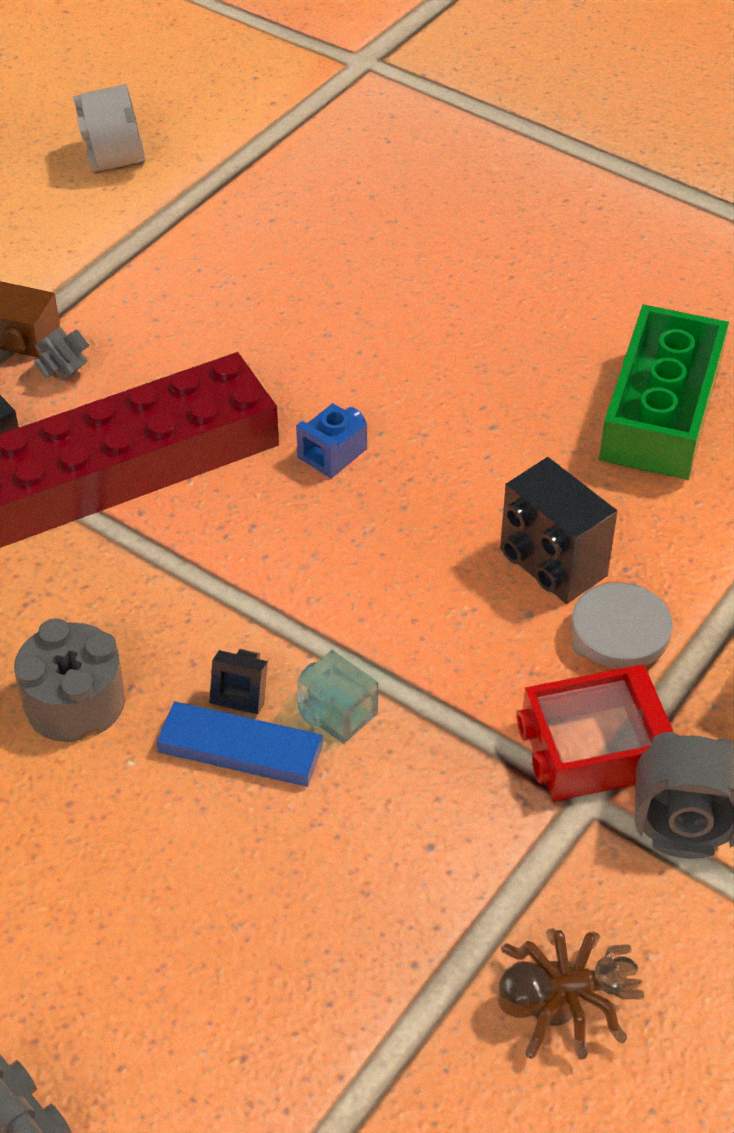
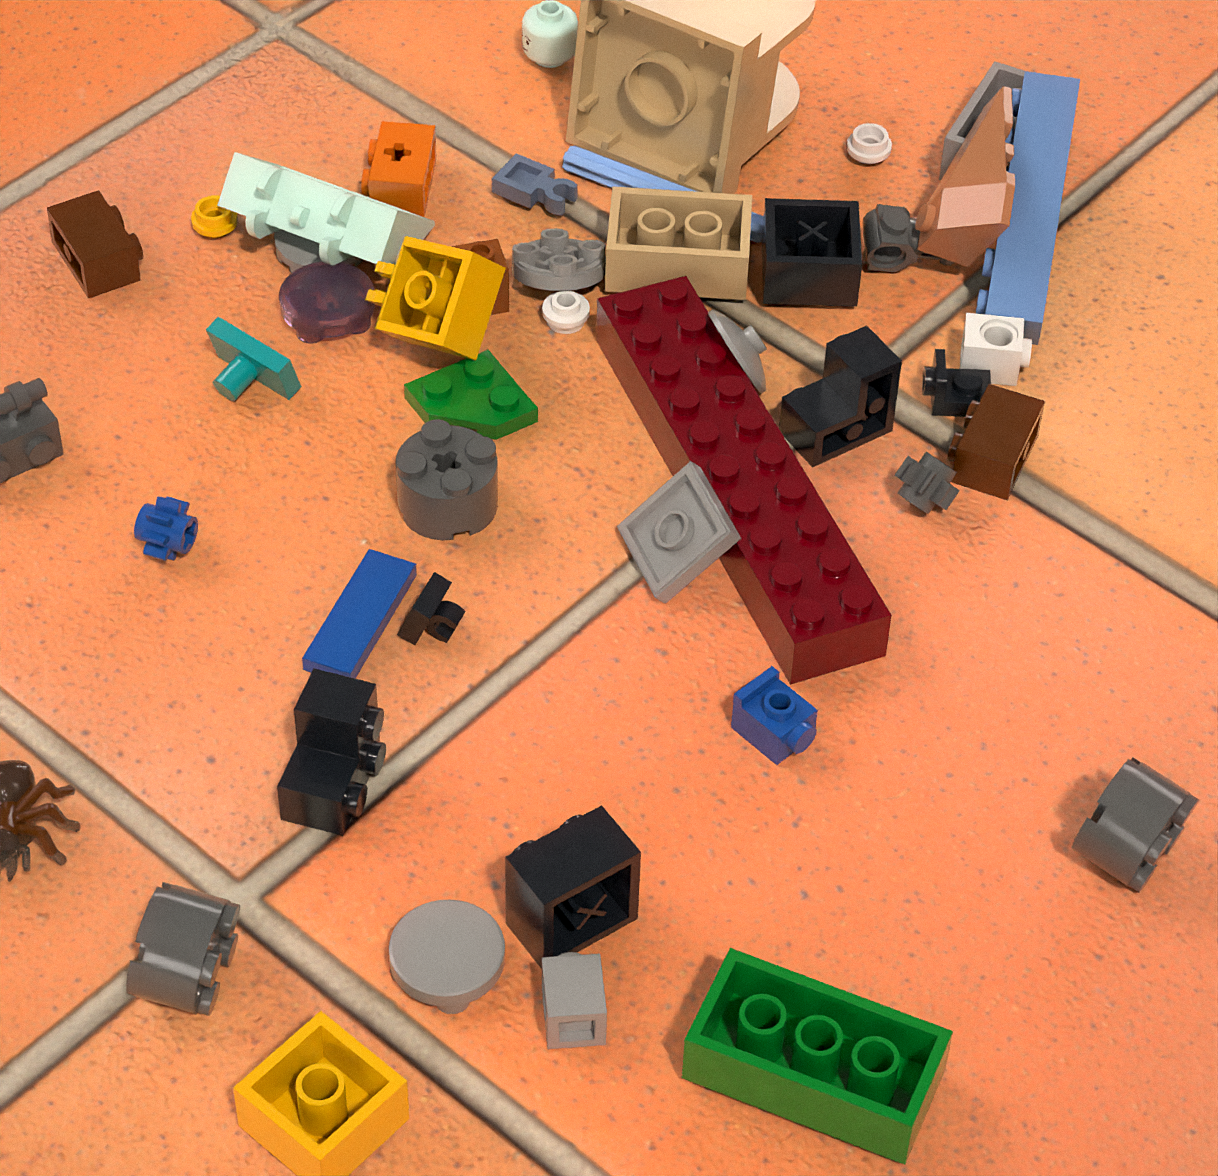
camera: 95 degrees right, 0 degrees up
(135, 500) = (678, 532): none -> light grey tile
(146, 919) = (166, 528): none -> blue gear
(336, 696) = (401, 681): clear light blue brick -> none
(416, 234) = (1134, 823): none -> dark grey brick
(439, 726) = (334, 752): none -> black brick
(591, 730) = (297, 900): window -> none
(649, 537) = (574, 1000): none -> light grey brick

